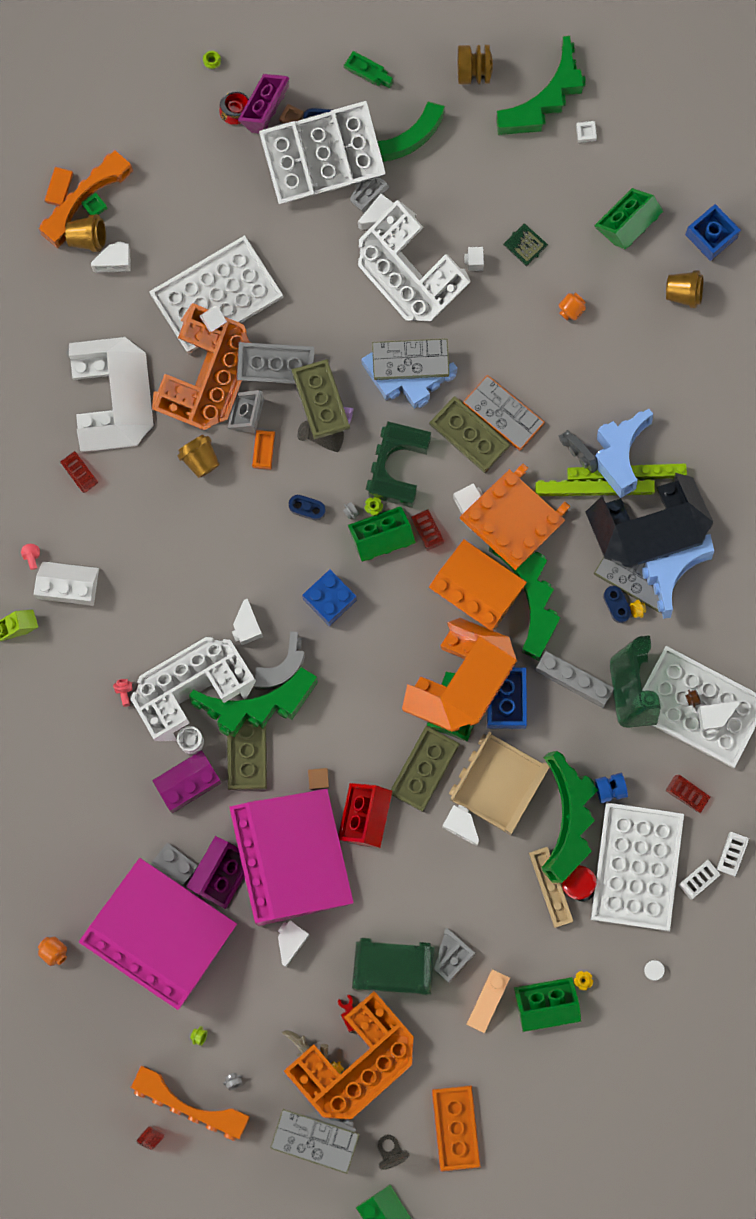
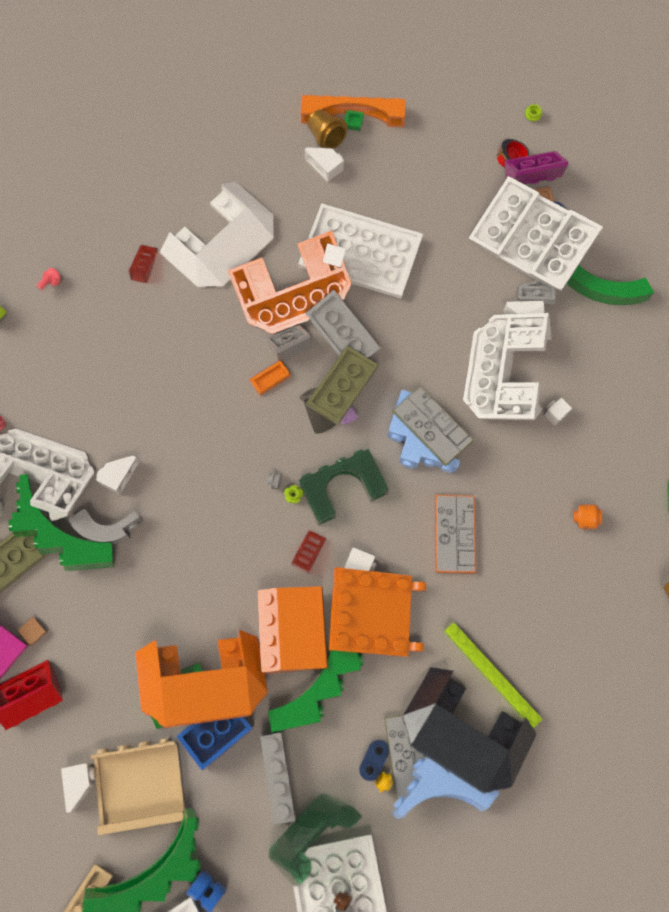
camera: 45 degrees right, 5 degrees down
(58, 186) = (348, 87): orange tile -> none
(66, 583) = (47, 319): white slope -> none
(199, 456) = (223, 334): pearl gold piece -> none
(307, 507) = (250, 445): dark blue plate -> none
(329, 597) = (188, 519): blue brick -> none
(368, 70) = (628, 220): green hinge -> none
(381, 534) = (274, 518): green slope -> none
(424, 768) = (103, 712): olive tile -> none
(469, 434) = (414, 522): olive tile -> none
(525, 244) = (604, 441): piece -> none
(578, 449) = (475, 617): dark grey hinge -> none
(588, 488) = (457, 660): lime piece -> none
(614, 459) = (510, 645): light blue arch -> none

